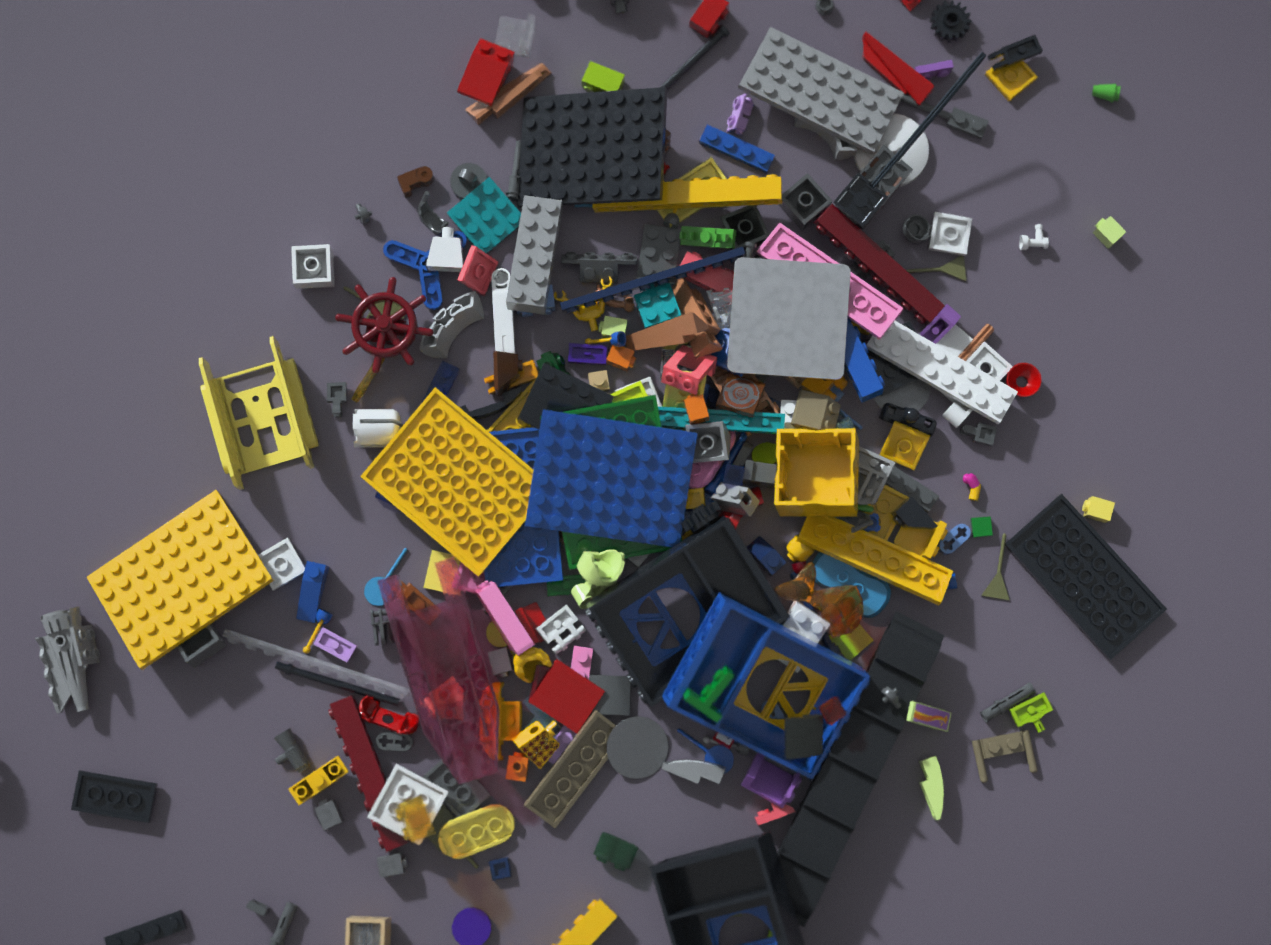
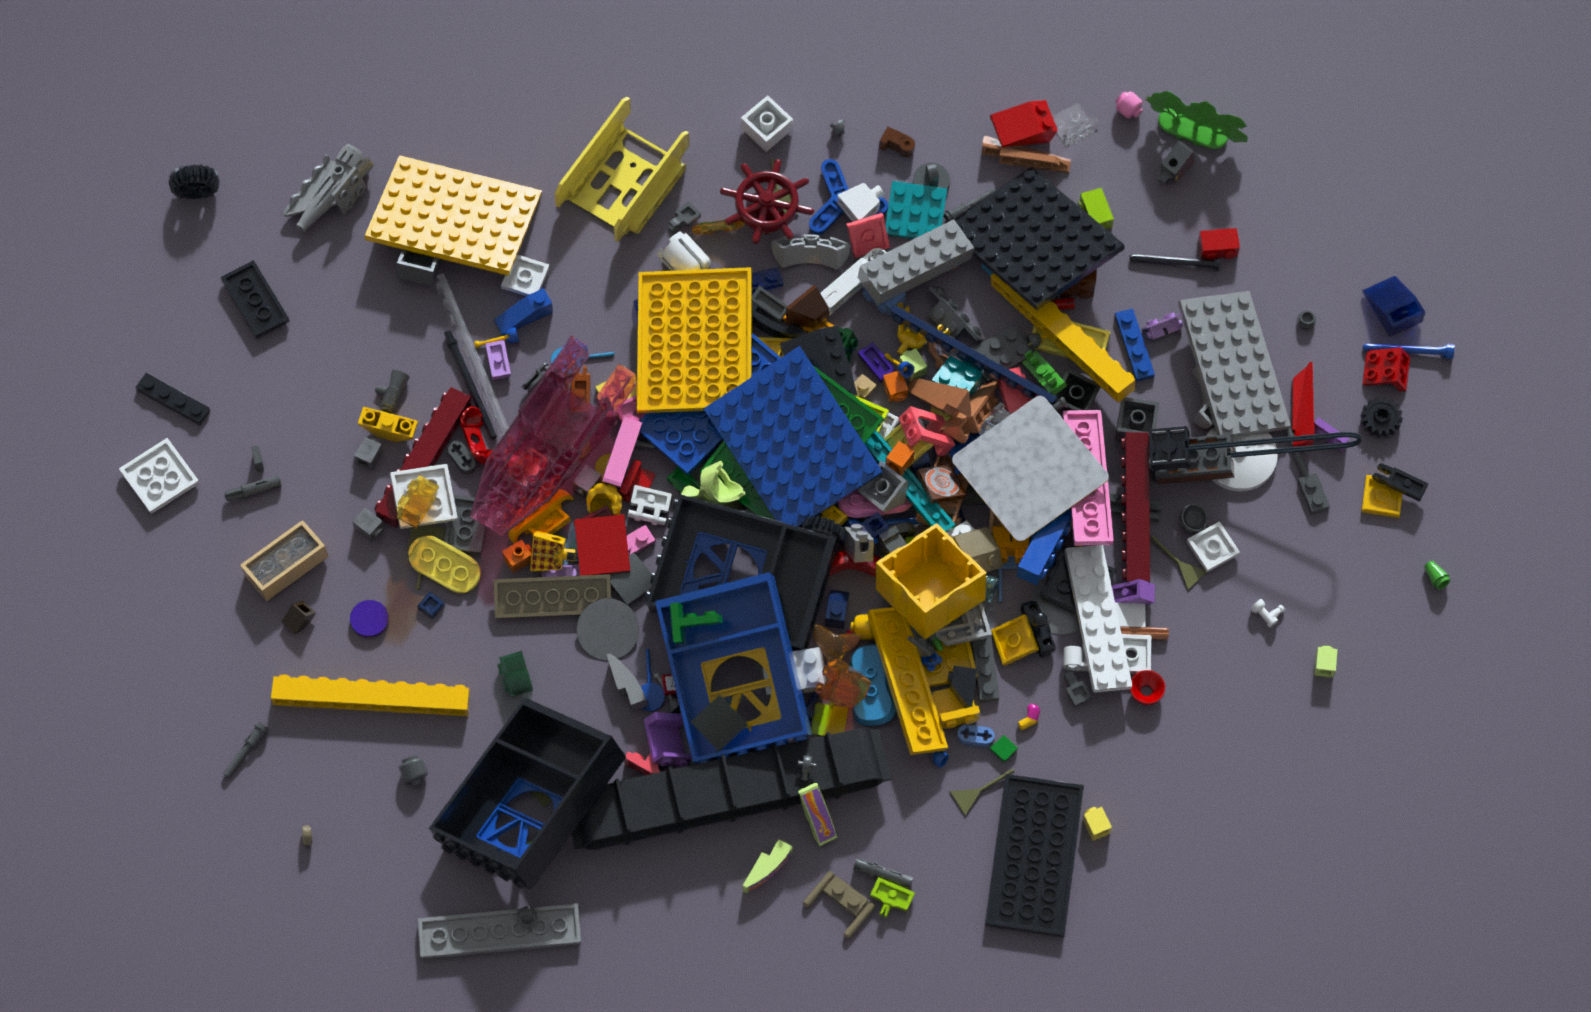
camera: 50 degrees right, 15 degrees down
(429, 217) = (879, 171): dark grey helmet -> none
(469, 394) = (769, 304): none -> dark grey tile
(832, 710) = (757, 727): clear red plate -> none

